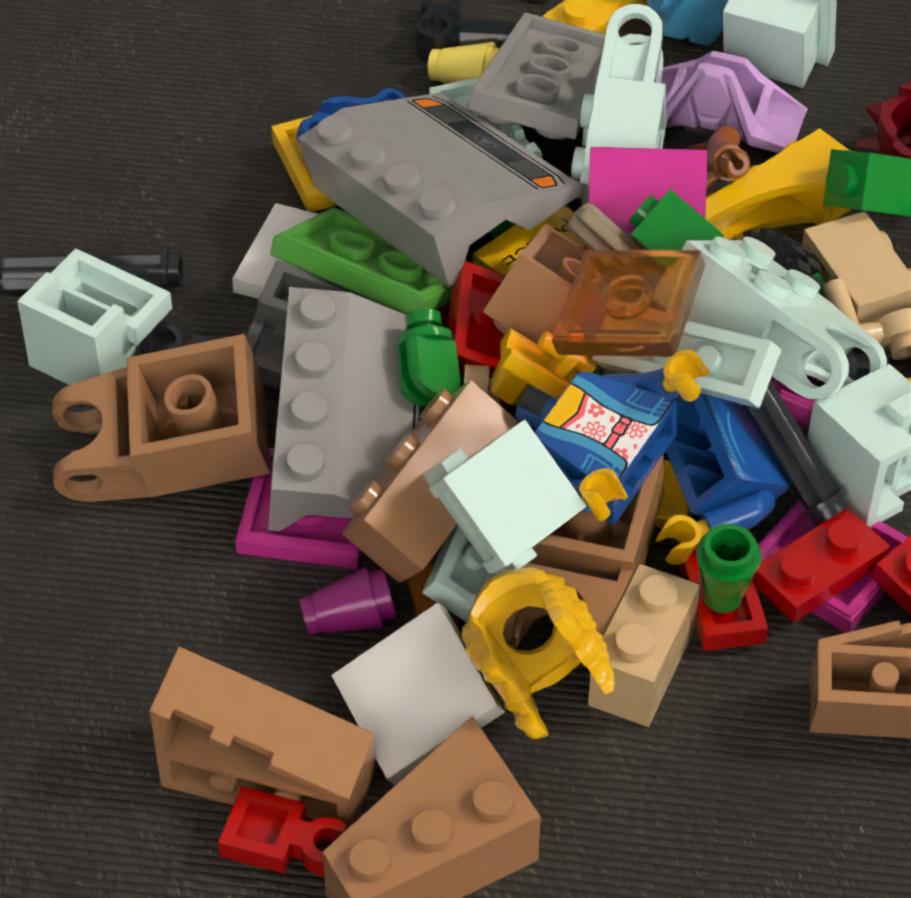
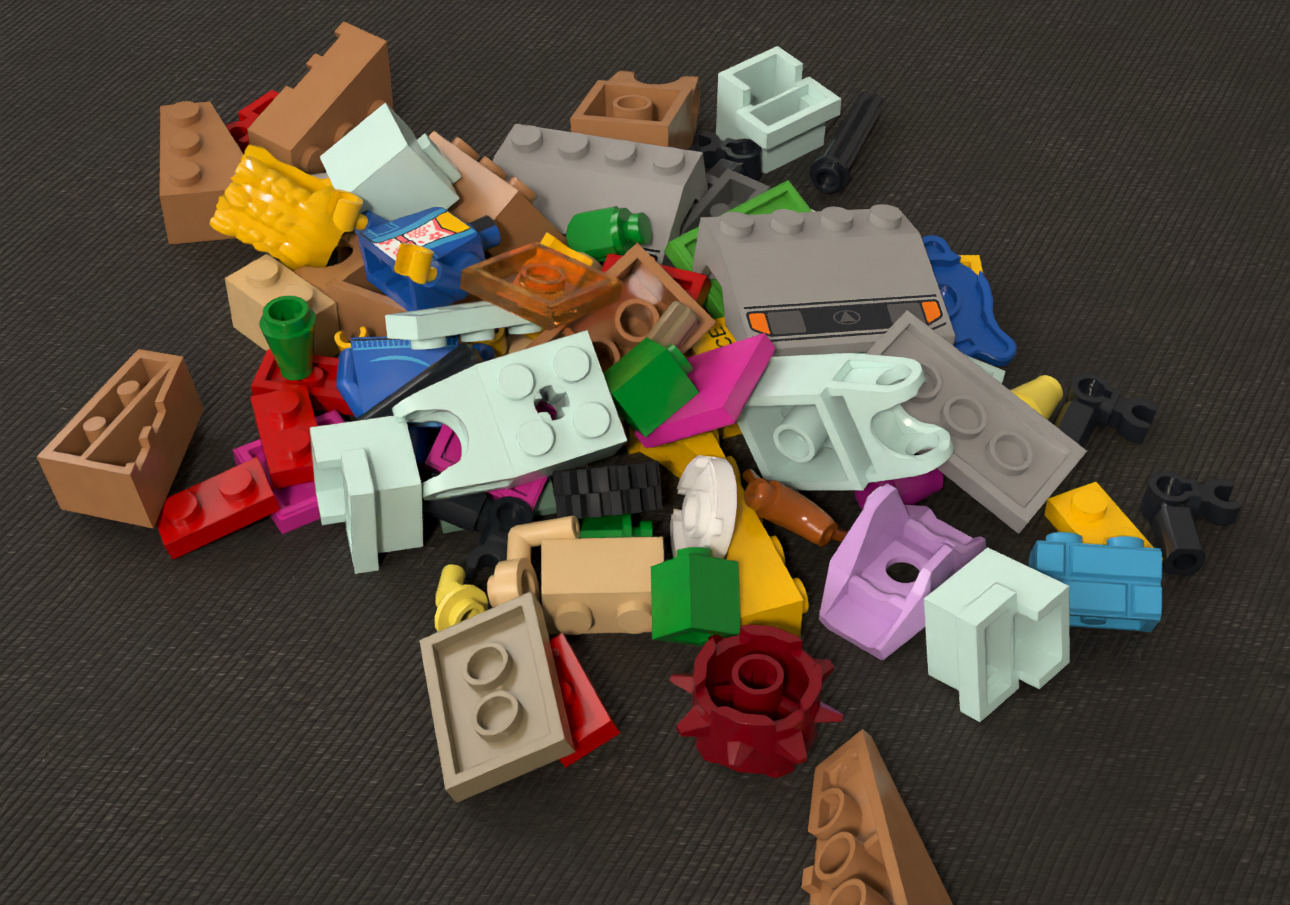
camera: 110 degrees right, 5 degrees down
(762, 195) = (707, 508): none -> white tile

